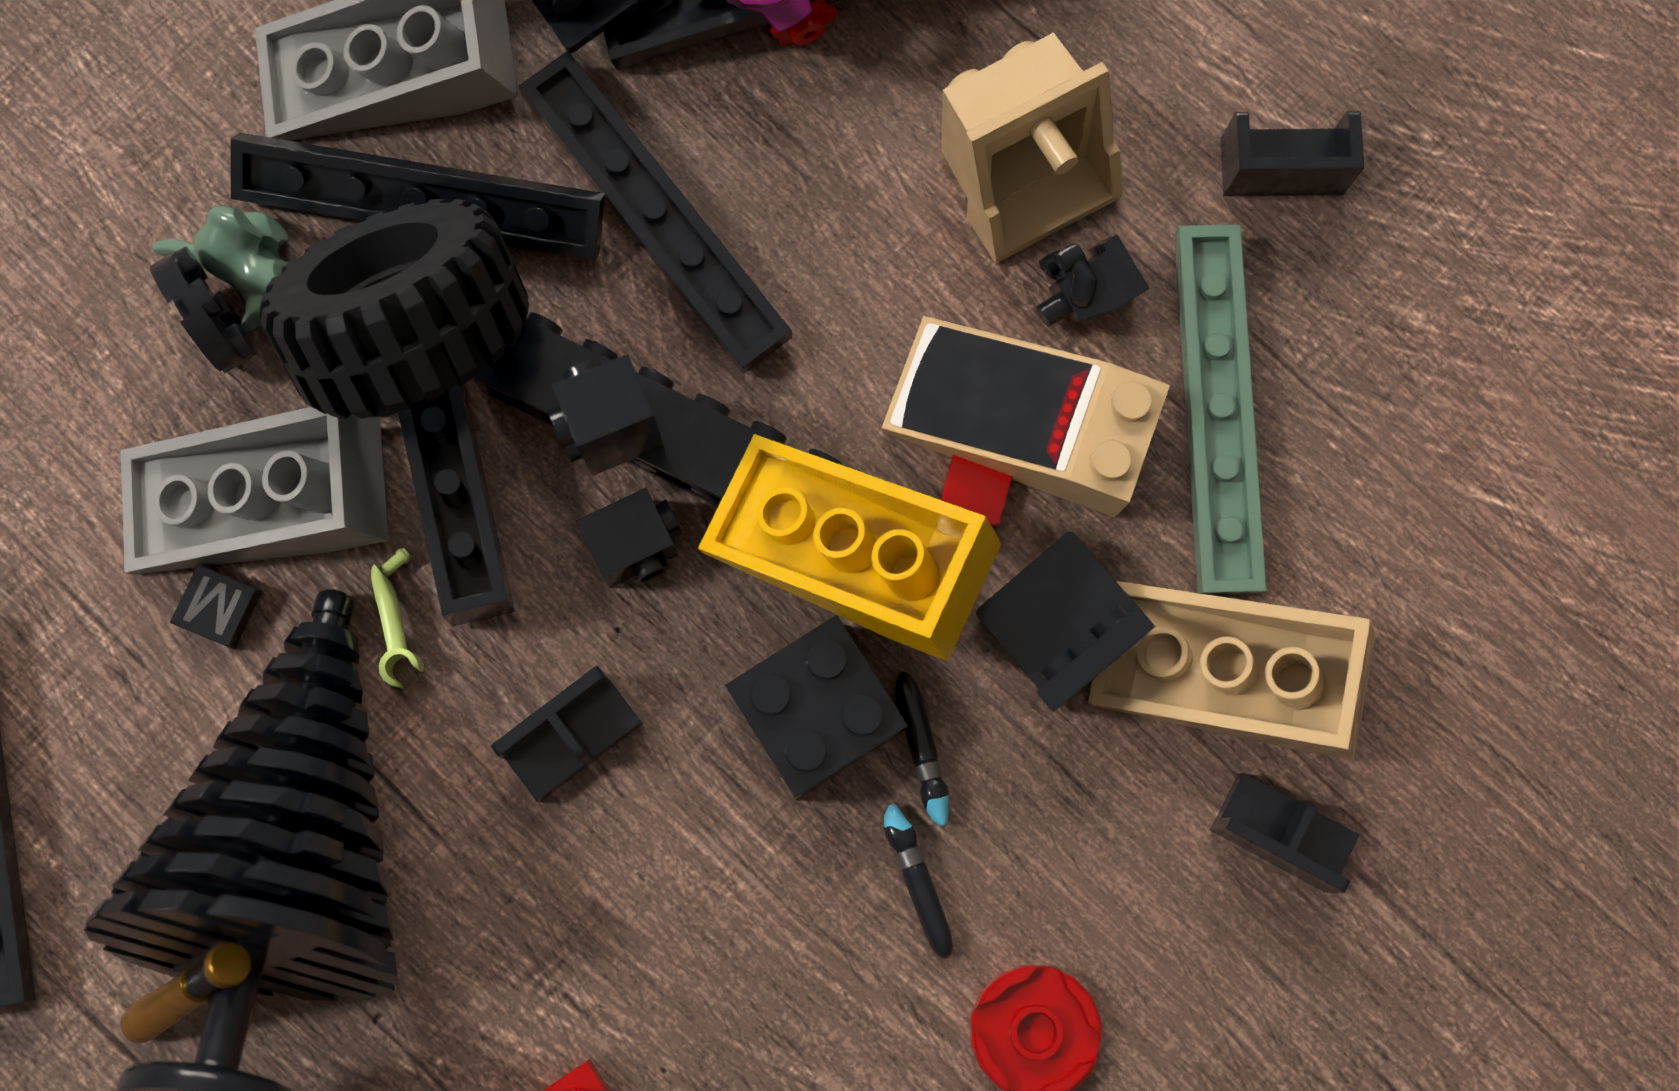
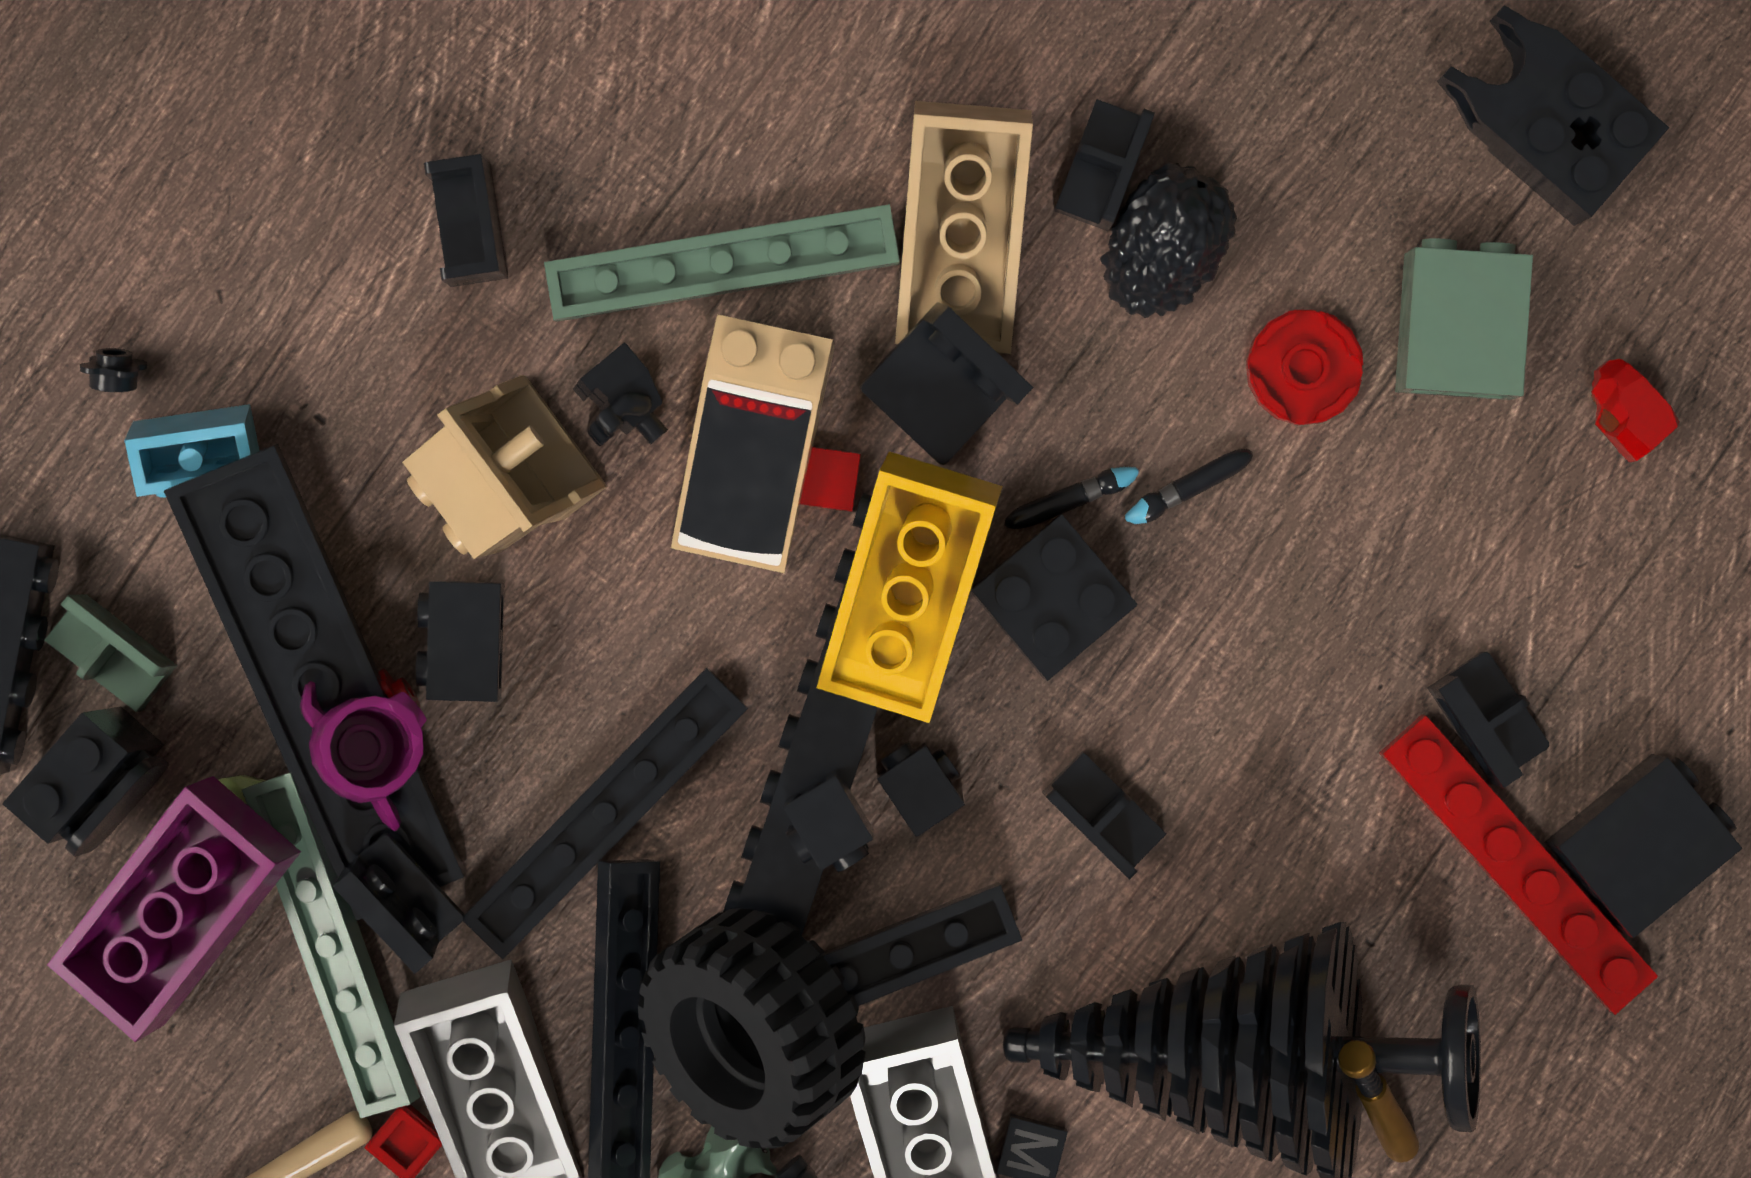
camera: 95 degrees left, 10 degrees up
(391, 618) = (1020, 991): yellowish green piece -> none
(855, 89) = (463, 641): none -> black brick
(1197, 892) = (1168, 240): none -> black piece

